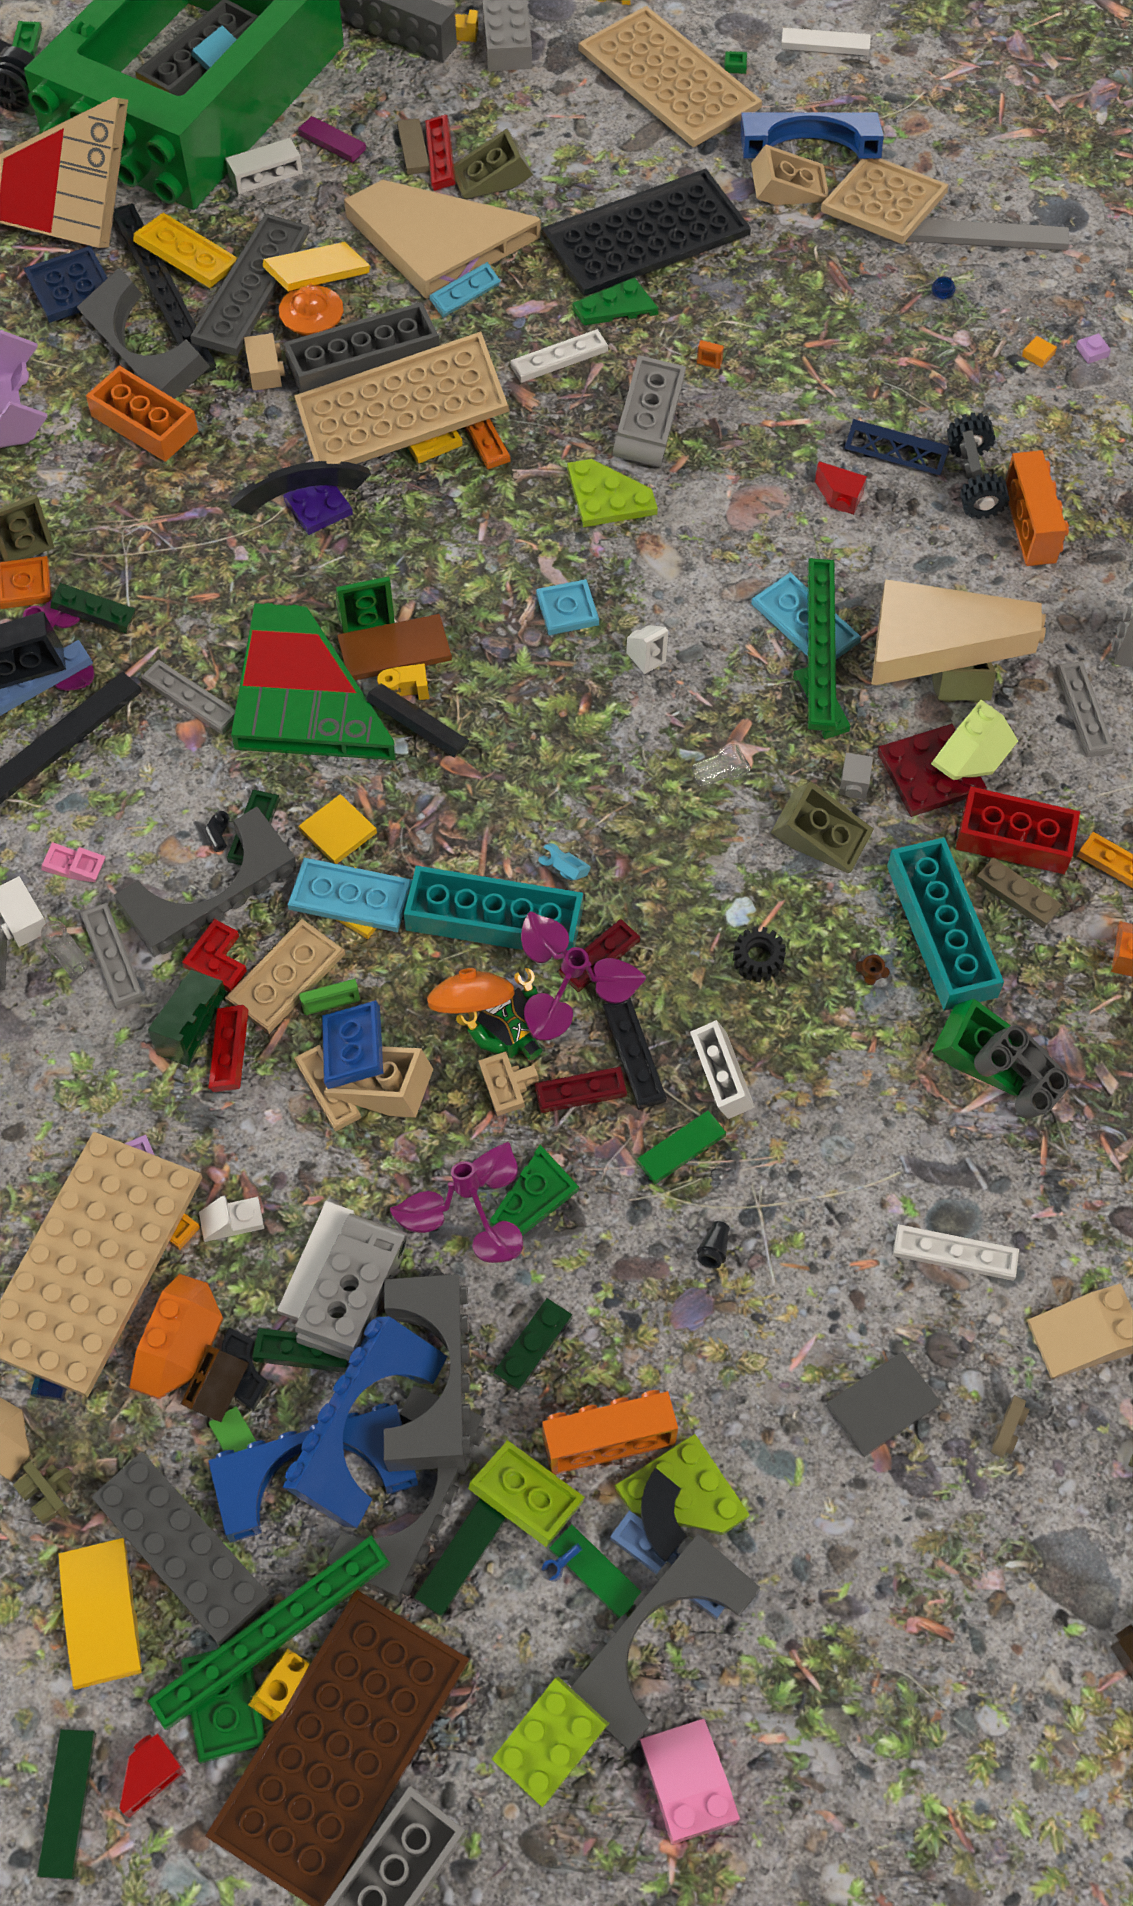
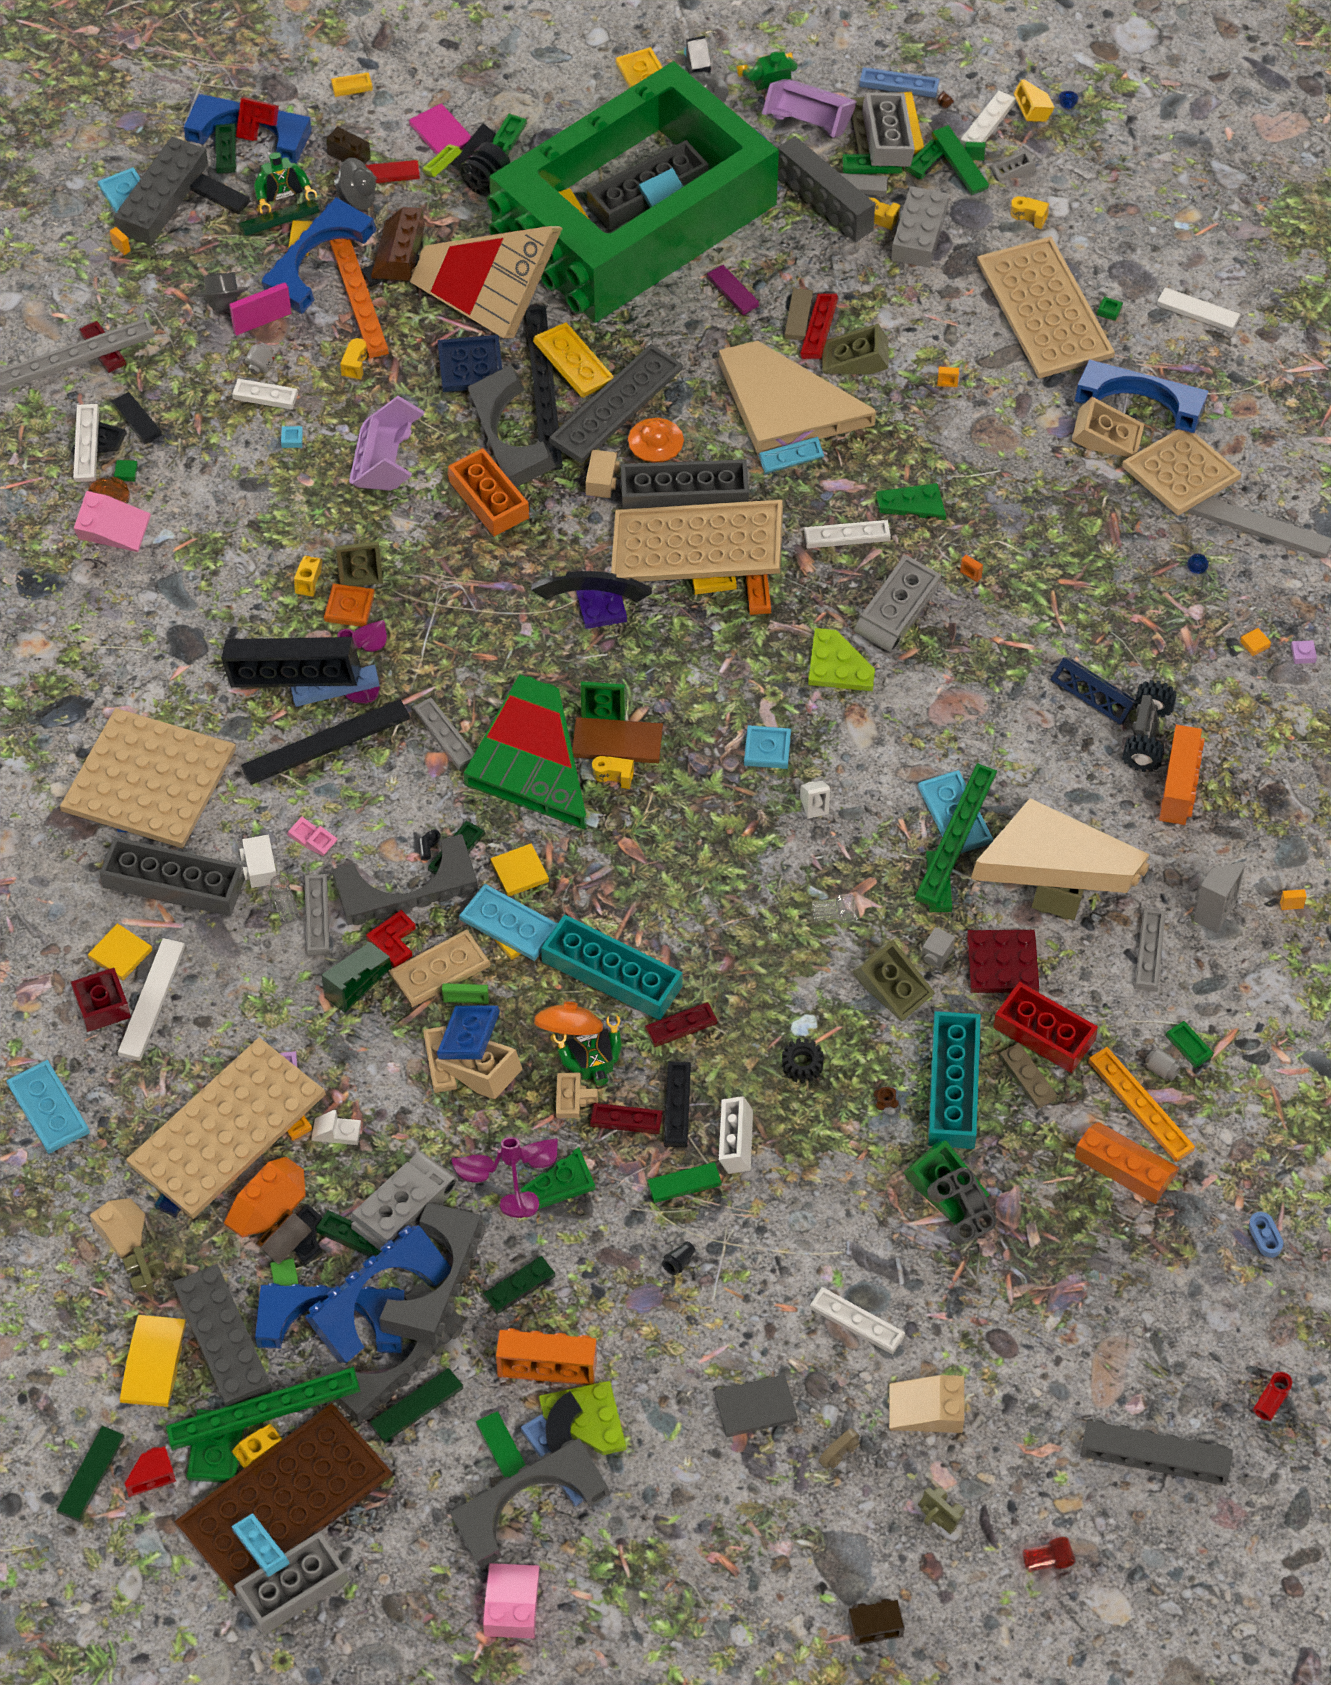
camera: 20 degrees right, 5 degrees down
(93, 608) = (394, 642): dark green plate -> none
(228, 1048) = (377, 1008): red plate -> none
(264, 165) = (666, 300): white brick -> none
(313, 1259) = (390, 1167): white tile -> none
(316, 266) = (674, 403): yellow tile -> none
(336, 1835) = (260, 1545): none -> medium azure tile
(417, 720) = (611, 803): black tile -> none
(526, 1493) = (473, 1379): lime plate -> none
(548, 938) = (641, 997): magenta plant -> none
(550, 1741) = (426, 1540): lime plate -> none
(561, 1562) = (478, 1433): blue hand -> none
(568, 864) = (684, 948): medium azure plate -> none
(599, 168) = (948, 377): none -> light orange tile
(645, 231) = (964, 444): black plate -> none
(840, 487) = (1031, 712): red slope -> none
(977, 744) = (1043, 949): yellowish green wedge -> none

